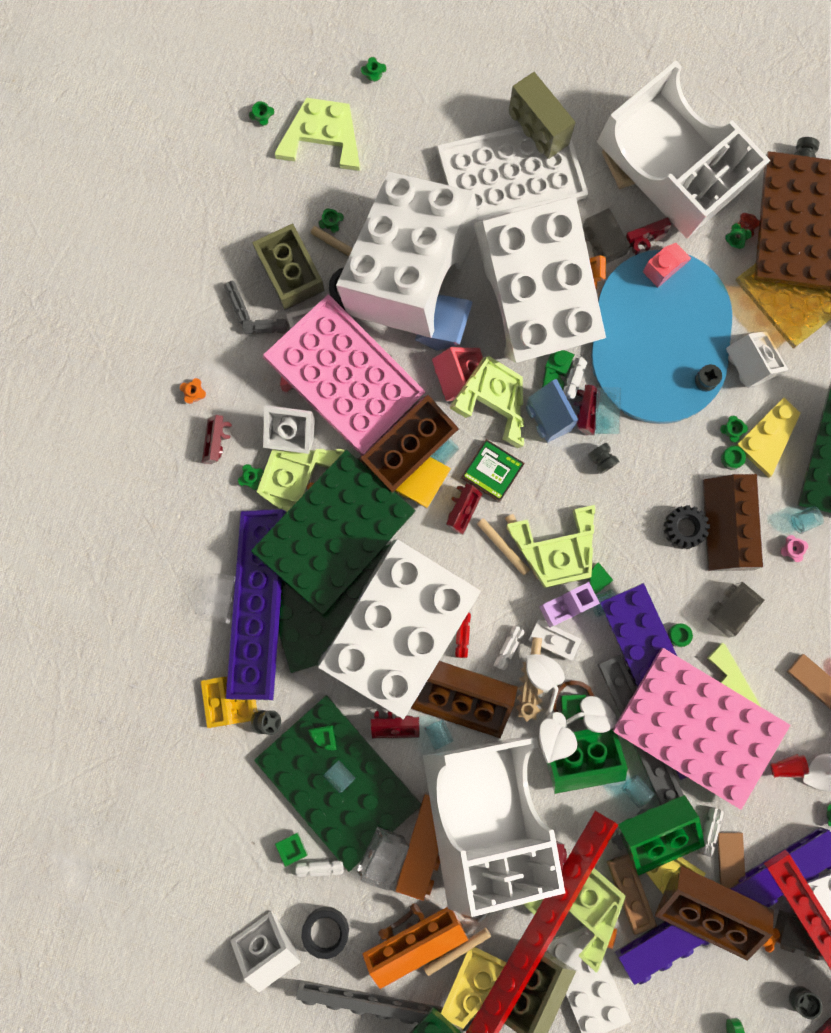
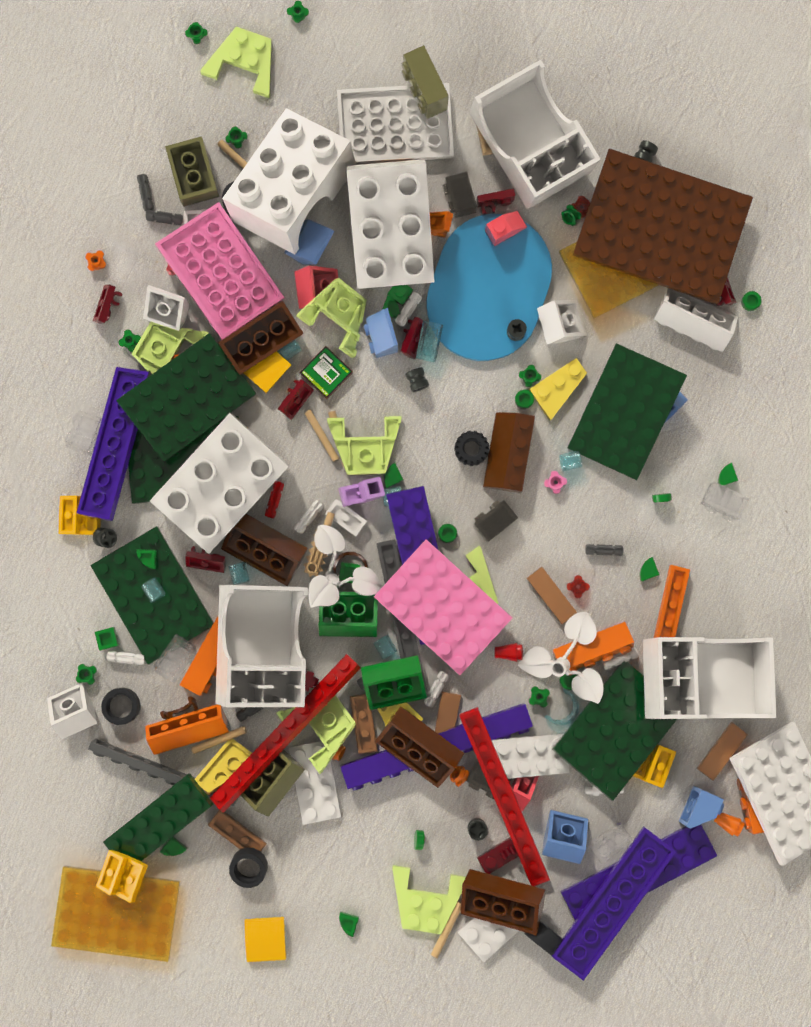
camera: 10 degrees right, 5 degrees up
(268, 905) = (82, 669): none -> green plate

